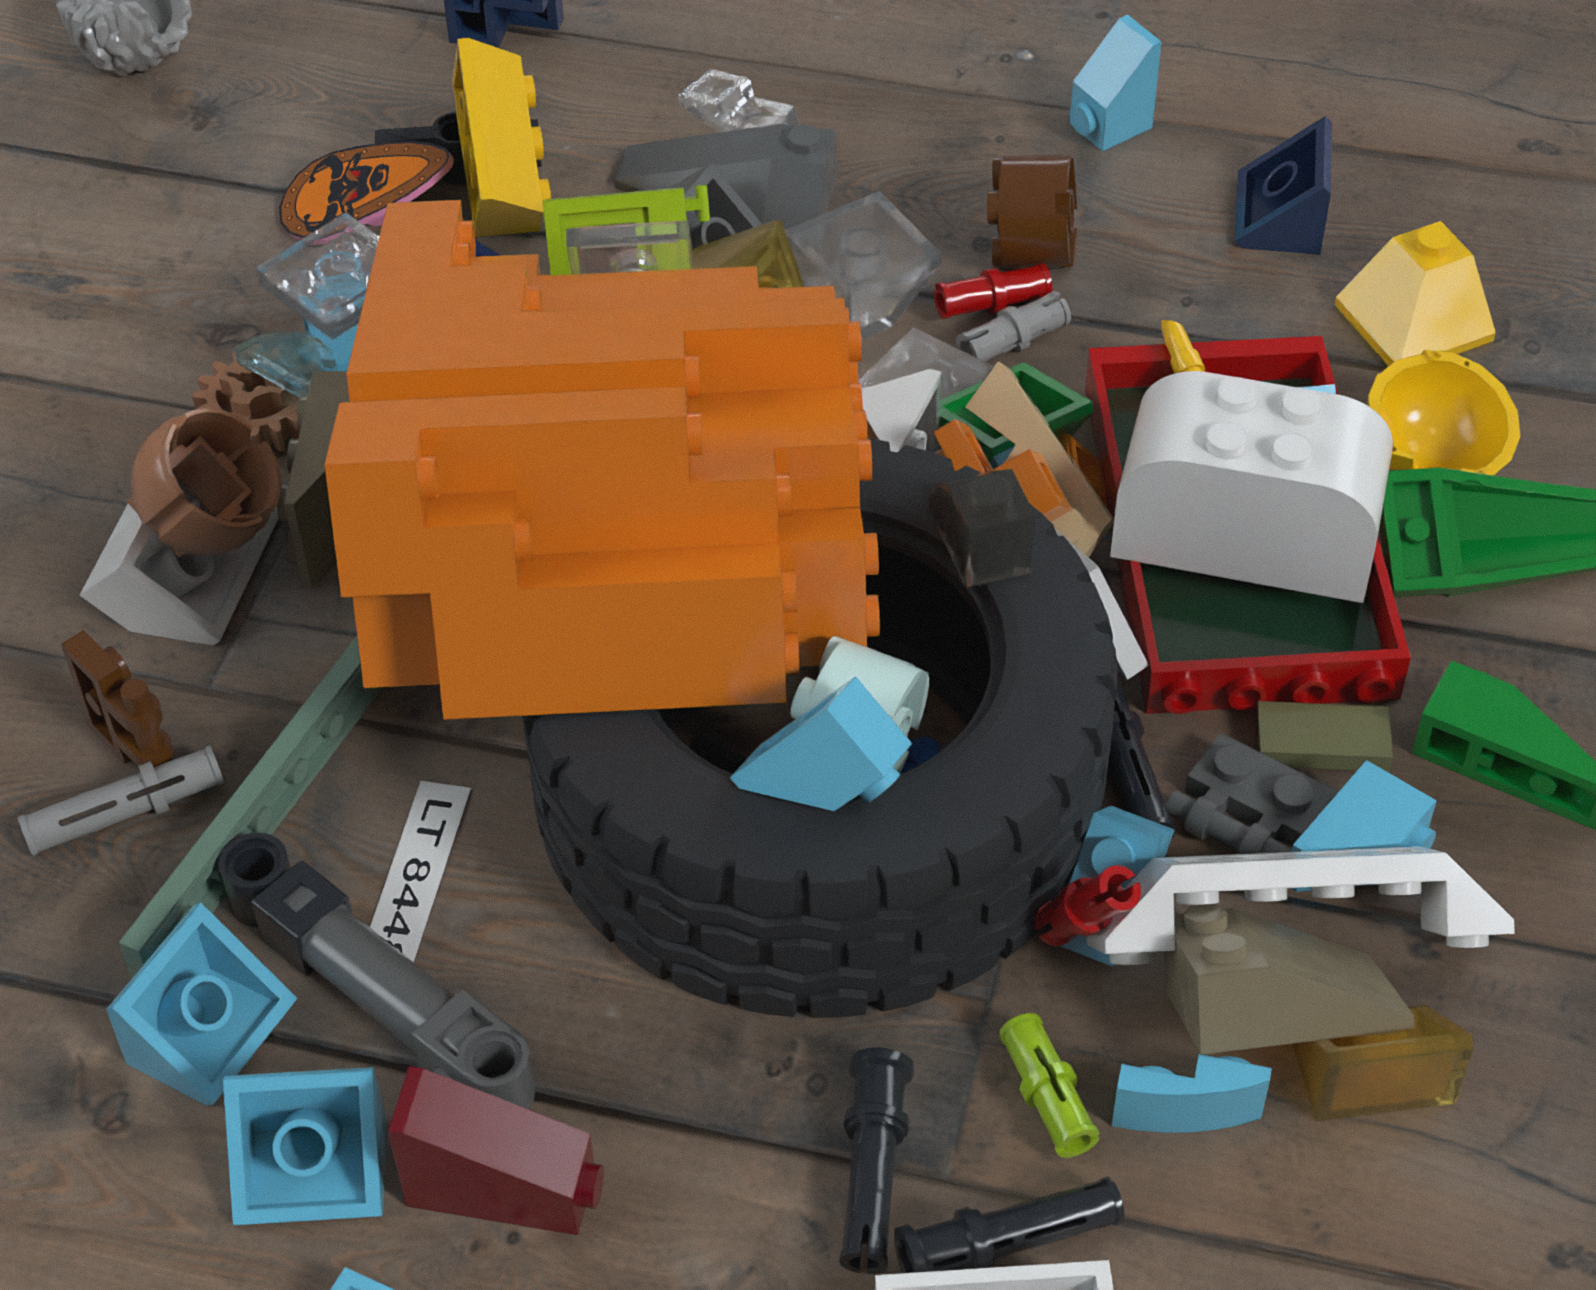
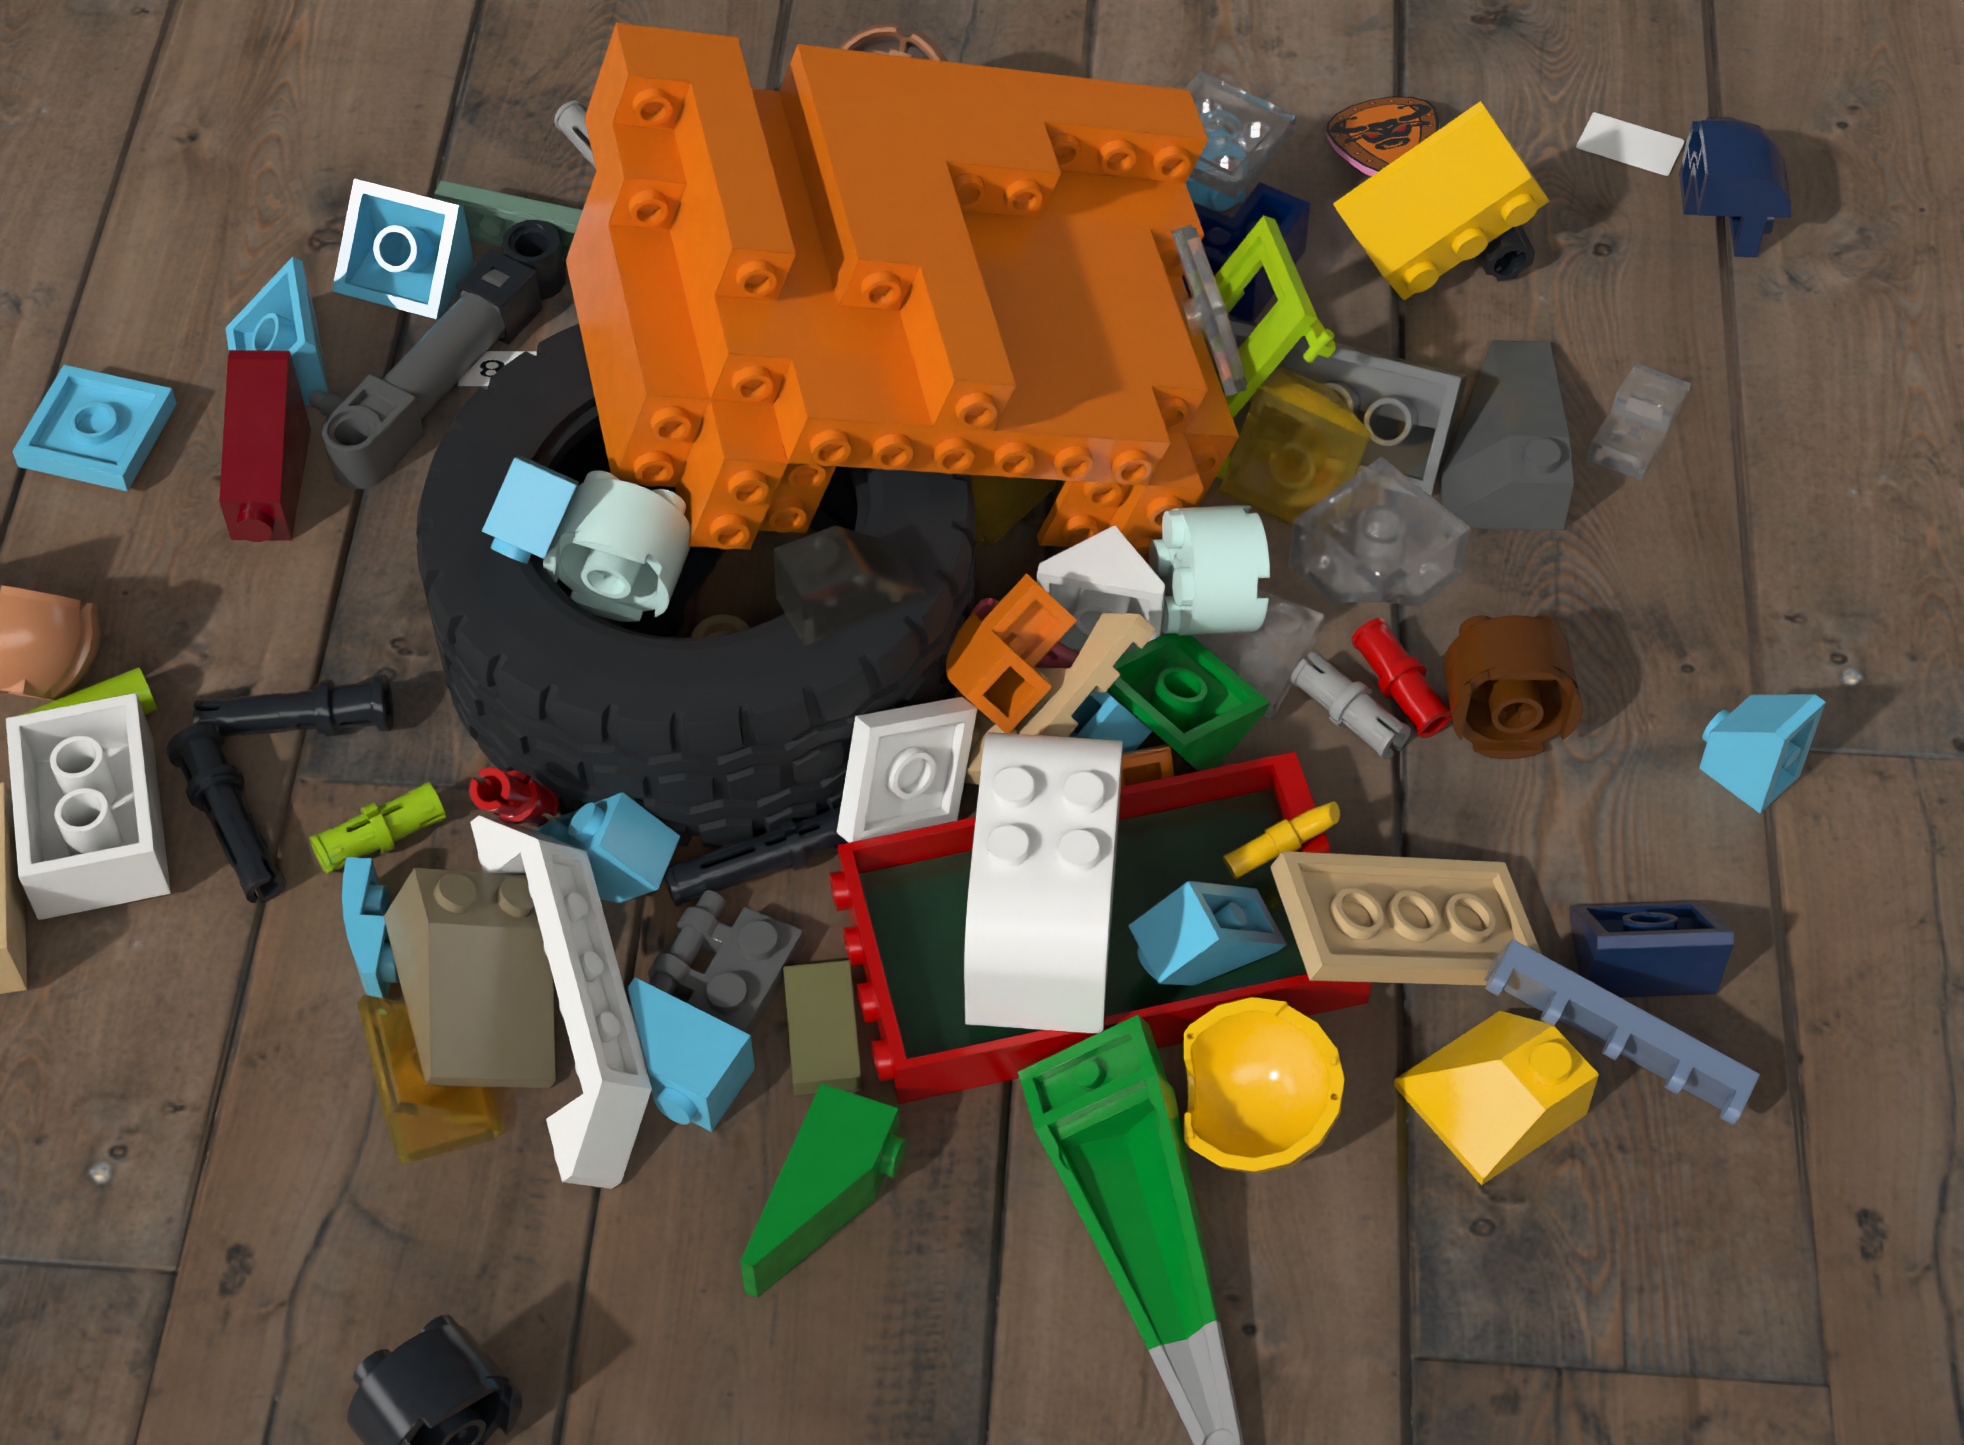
camera: 80 degrees right, 5 degrees up
(402, 62) = (1630, 144): none -> white sticker
(907, 330) = (1211, 569): none -> light aqua brick
(1282, 307) = (1399, 916): none -> tan plate
(1383, 211) = (1622, 1028): none -> sand blue hinge

